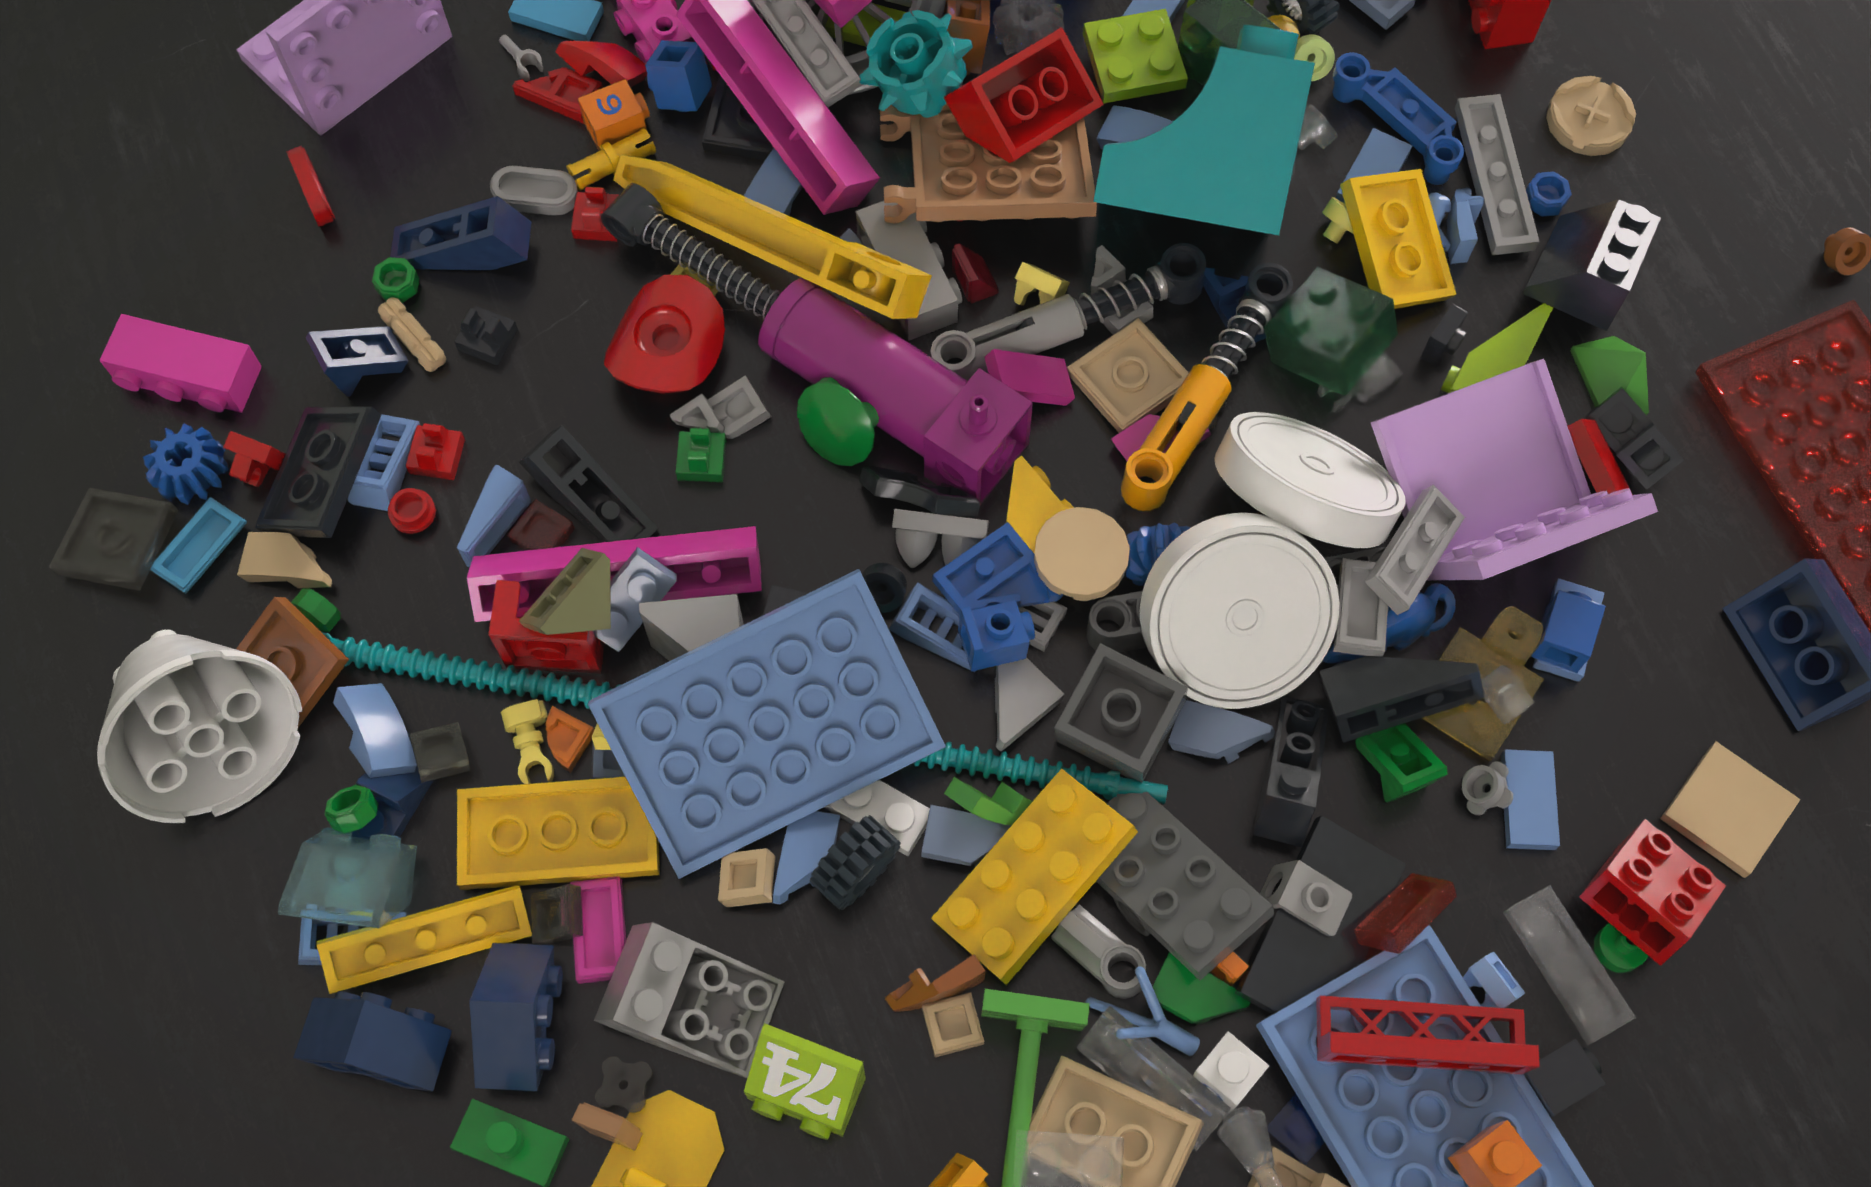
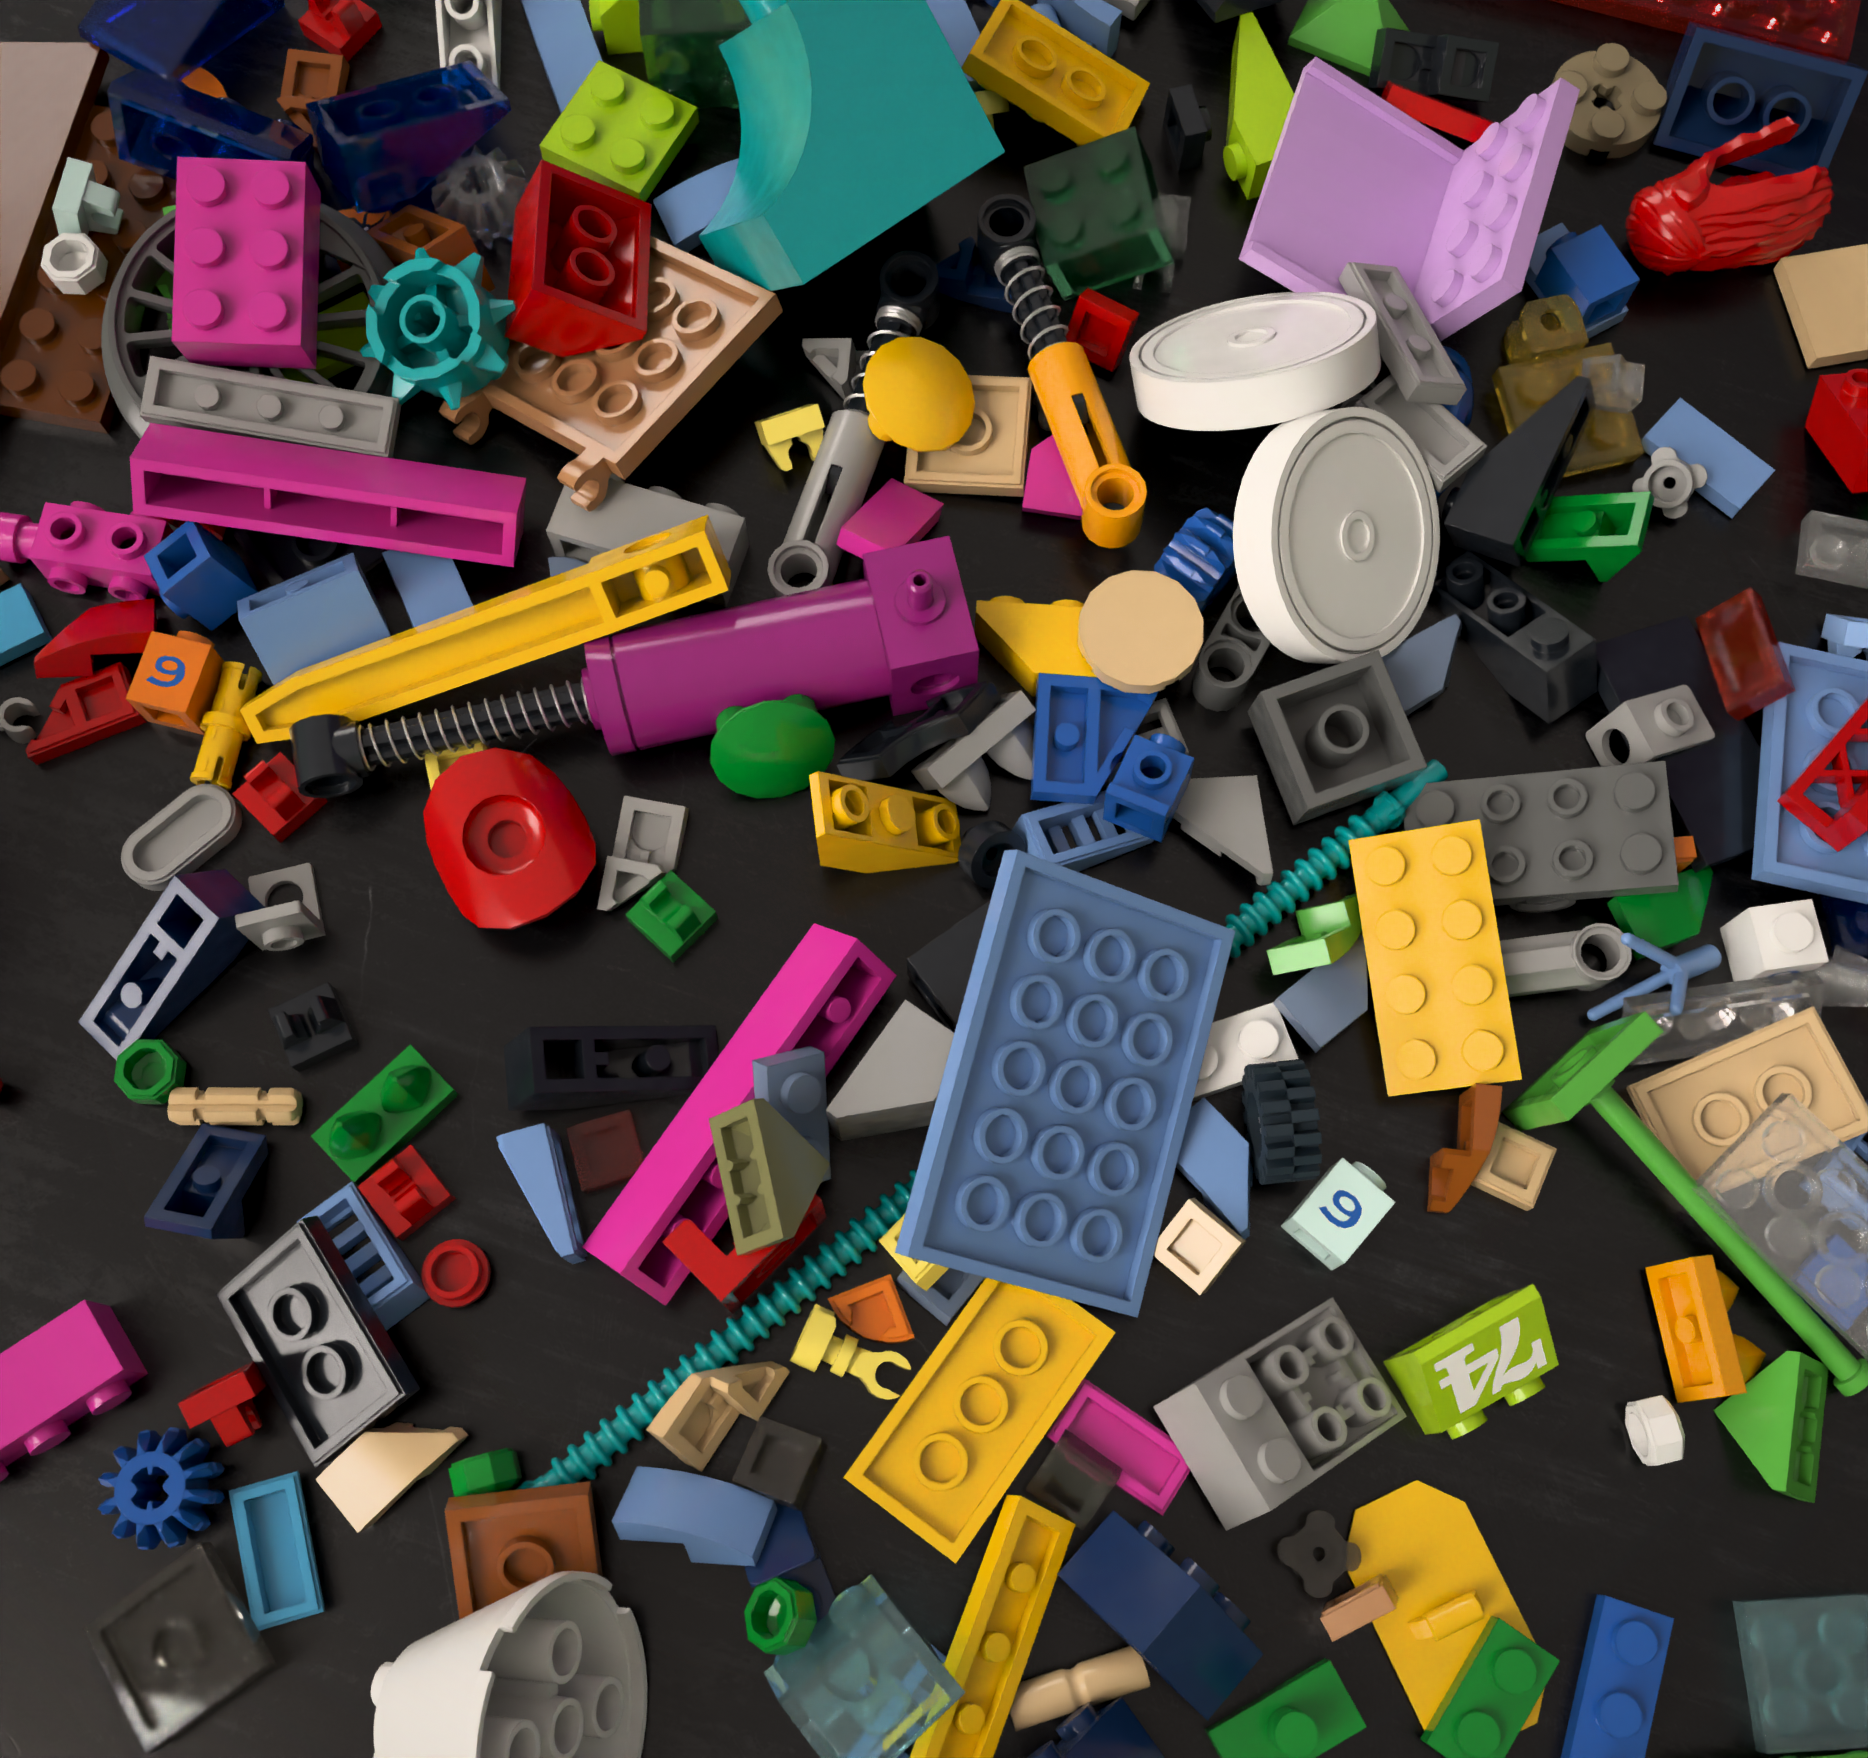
camera: 50 degrees left, 5 degrees up
(429, 997) = (1087, 1682): none -> tan piece
(441, 691) = (708, 1406): none -> tan slope
(469, 407) = (384, 1115): none -> green tile
(525, 273) = (284, 924): none -> light grey bracket
(704, 145) = (312, 617): none -> medium blue brick
(834, 941) = (1339, 1212): none -> light aqua brick
(839, 510) = (881, 826): none -> yellow slope
(972, 274) = (713, 484): dark red slope -> none
(1117, 326) = (918, 395): none -> yellow dish
(1266, 389) = (1101, 328): none -> red tile
(1703, 691) = (1733, 224): none -> red hair
(1737, 539) = (1625, 83): none -> dark tan plate

